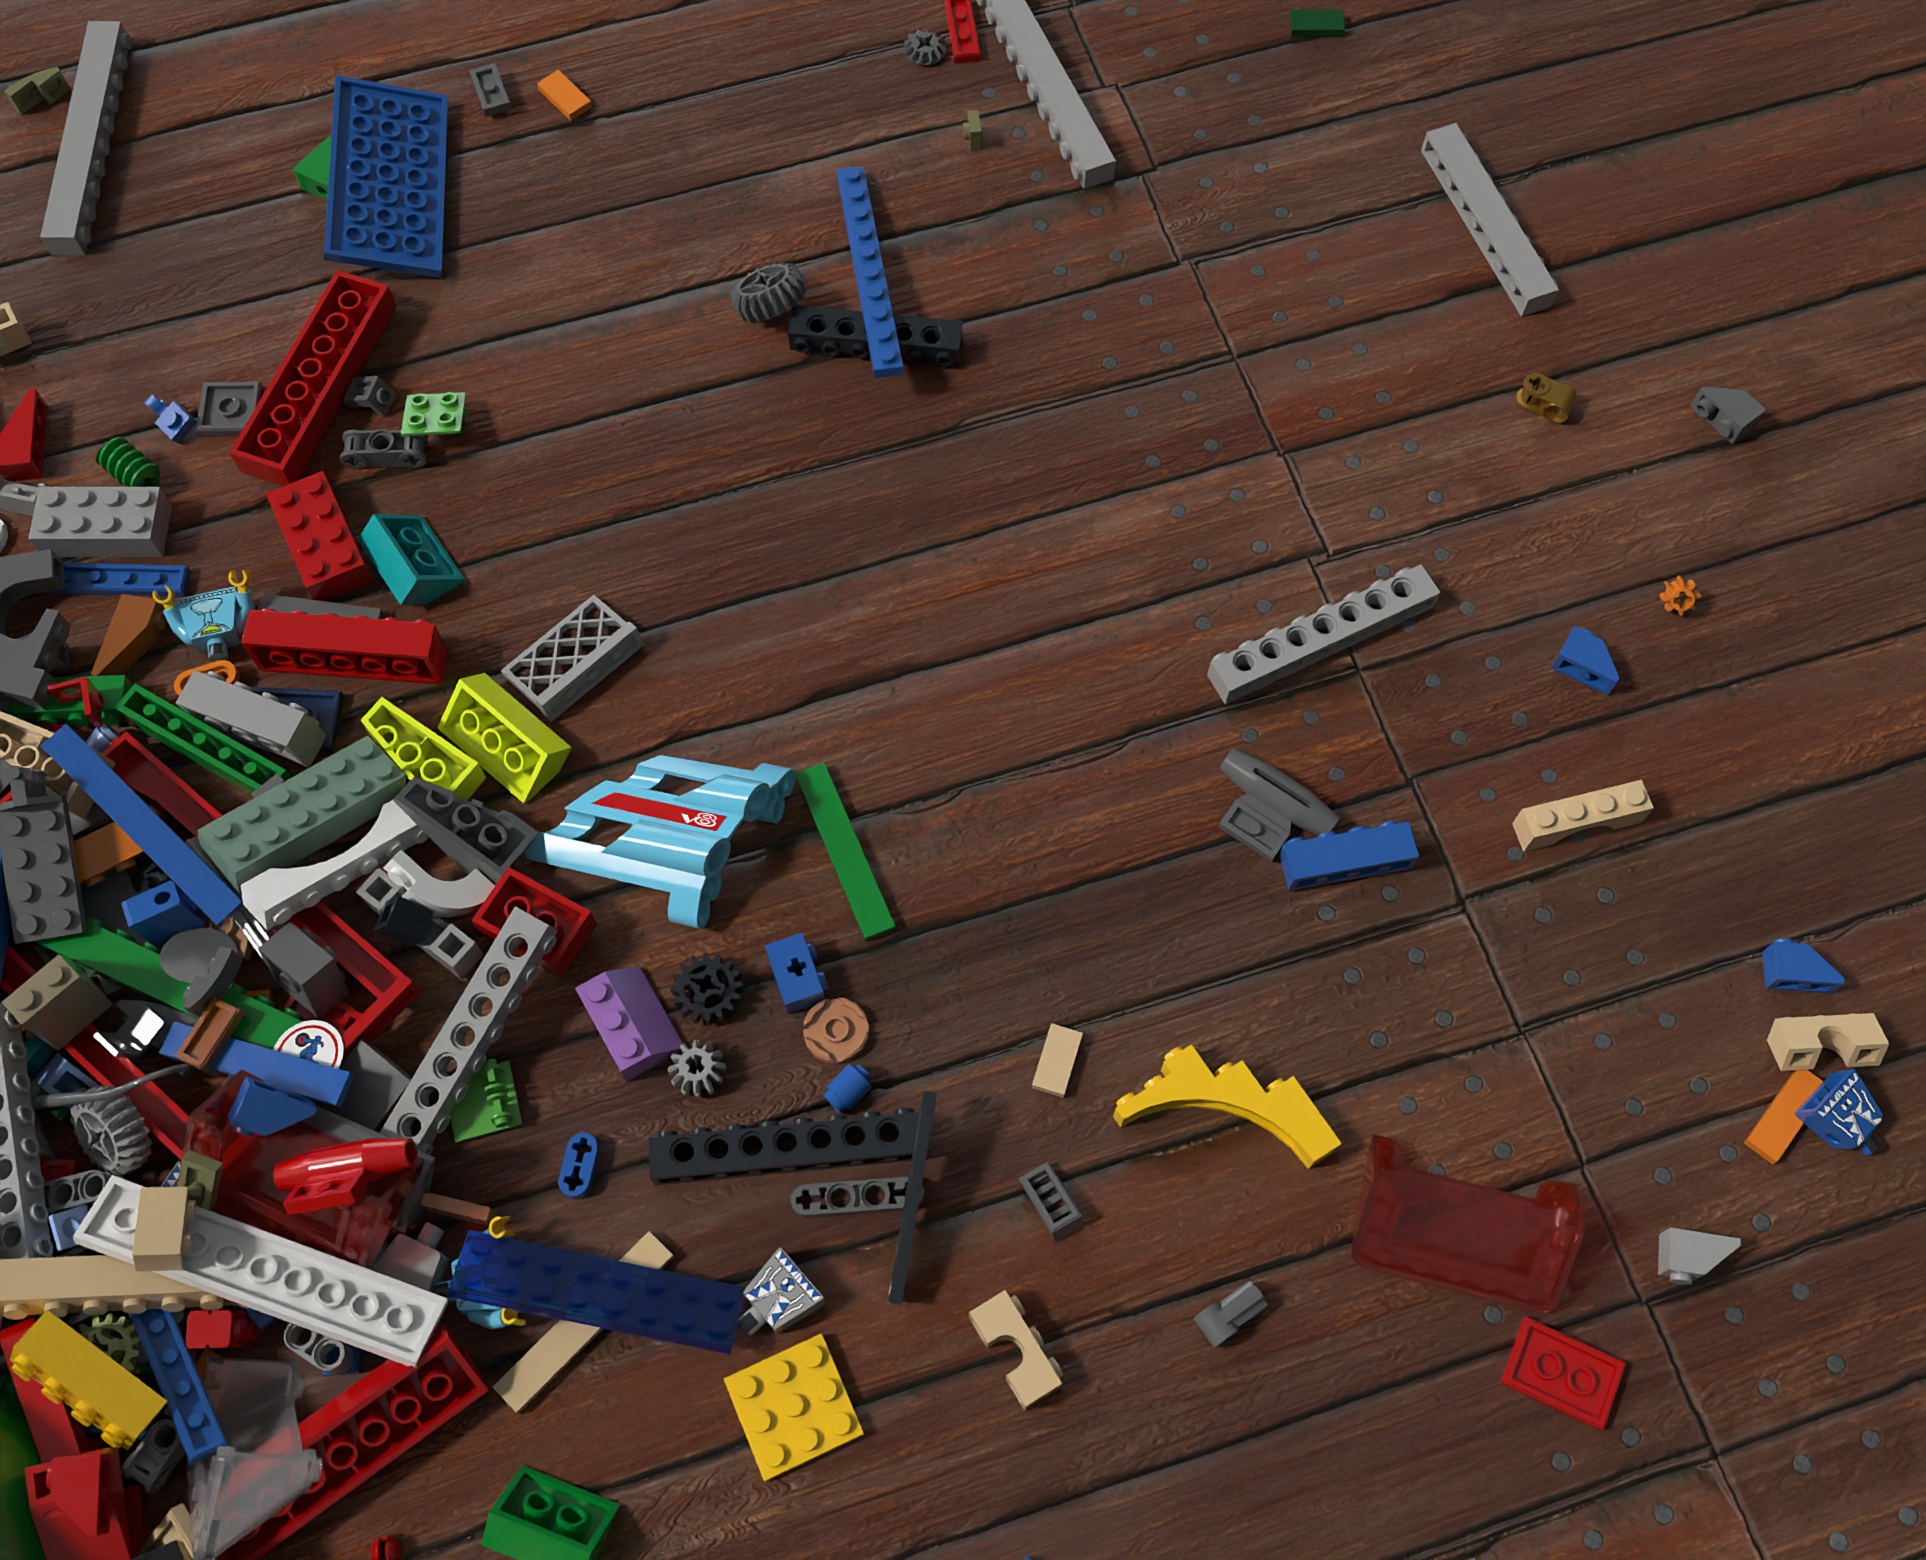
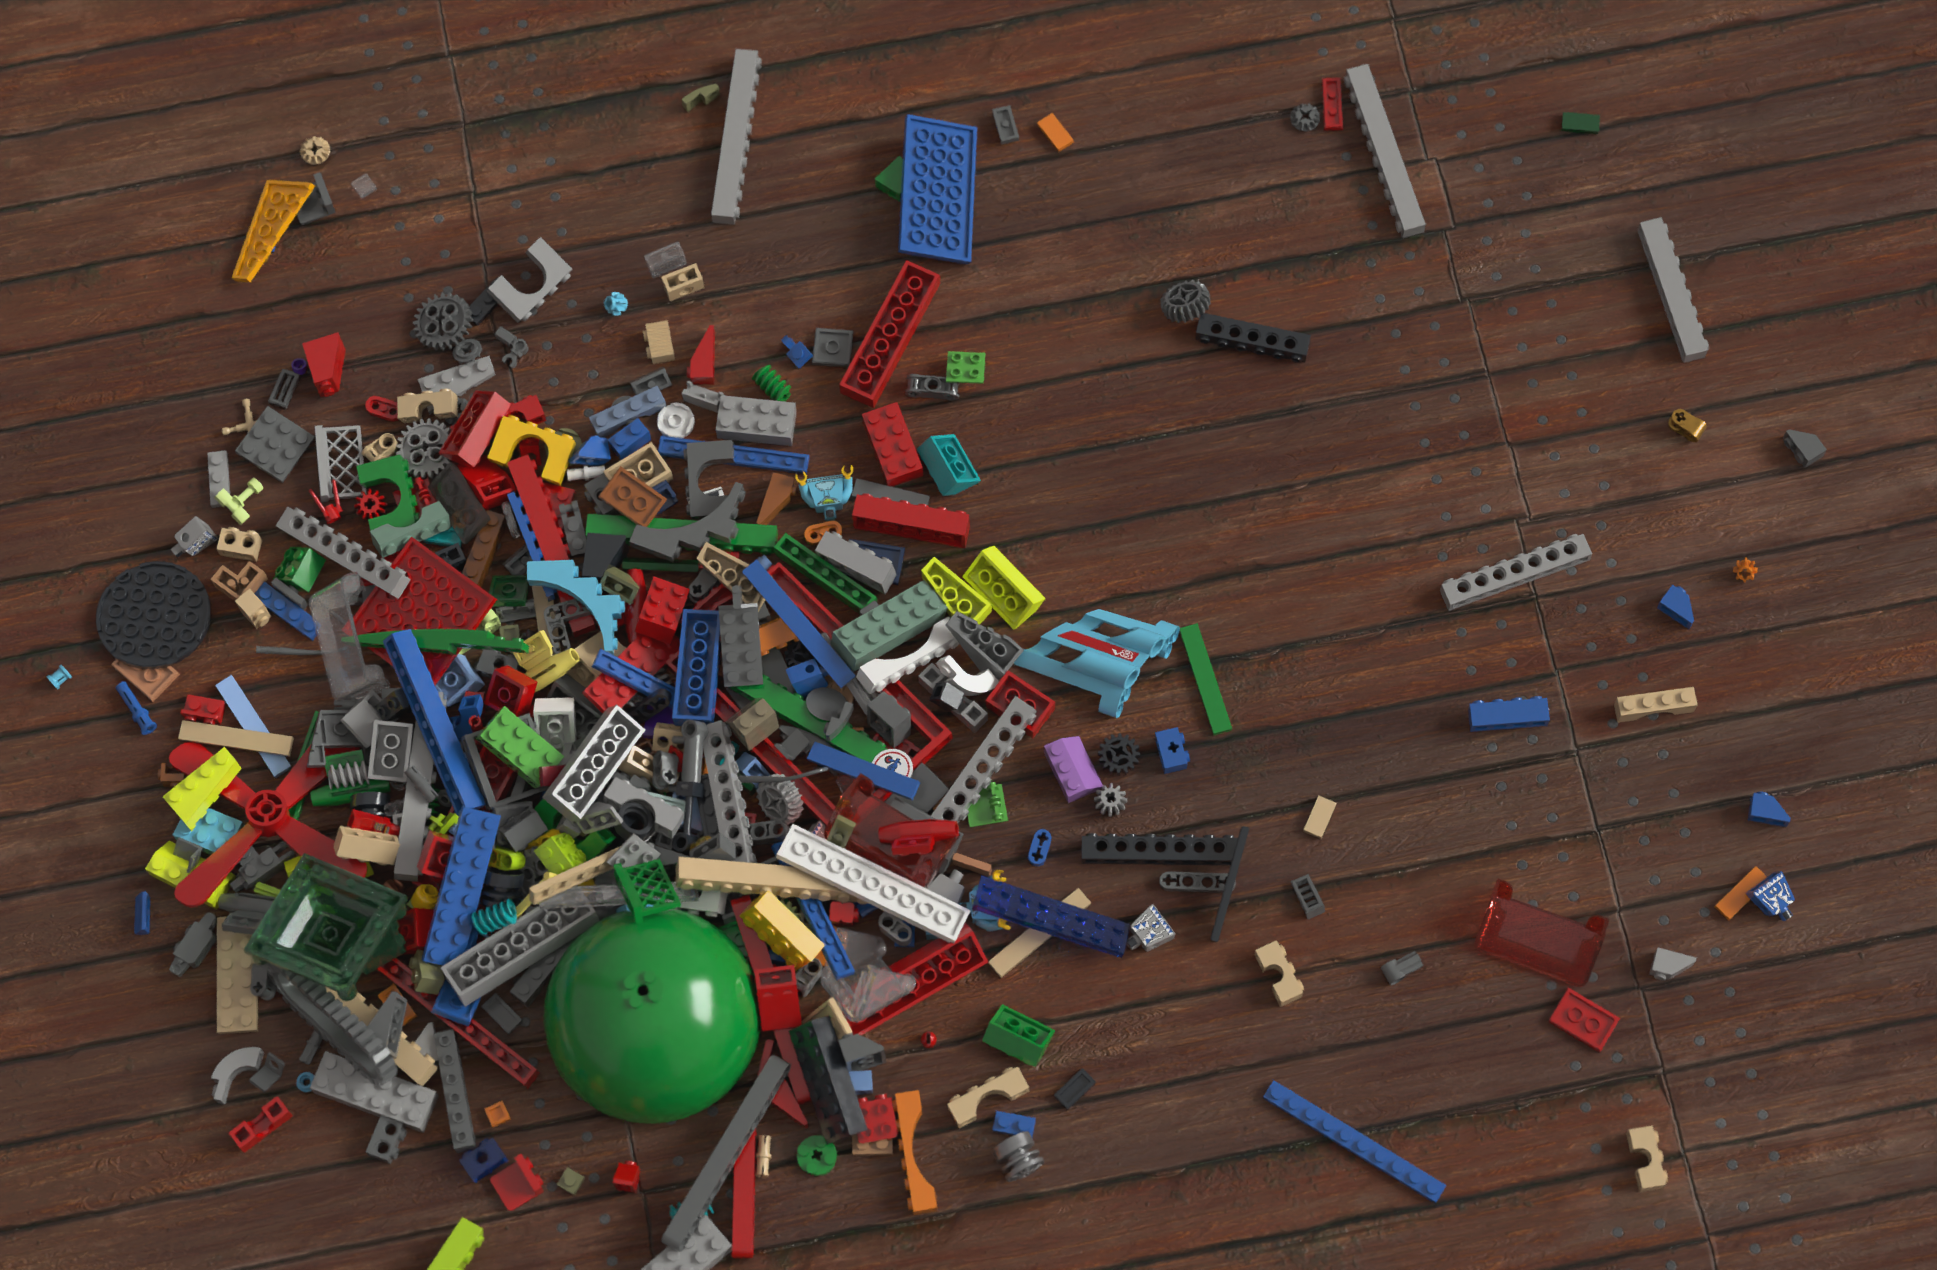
camera: 10 degrees right, 5 degrees up
(65, 1225) = (764, 850): light blue bracket -> none
(83, 1489) = (787, 981): red slope -> none
(92, 697) = (756, 532): red bracket -> none
(162, 1228) = (825, 855): tan brick -> none
(210, 1035) = (837, 751): dark orange tile -> none
(267, 1108) = (875, 796): blue slope -> none
(370, 393) = (923, 347): dark grey bracket -> none
(586, 669) = (1053, 552): light grey fence -> none
(793, 1407) = (1153, 990): yellow plate -> none
(836, 1030) = (1192, 786): nougat tile -> none
(848, 1088) = (1197, 820): blue brick -> none
(869, 273) = (1252, 291): blue plate -> none
(972, 130) = (1331, 188): olive plate -> none
(1190, 1084) = (1395, 839): yellow arch -> none
(1270, 806) = (1466, 678): dark grey plate -> none
(1854, 1036) = (1788, 852): tan arch -> none

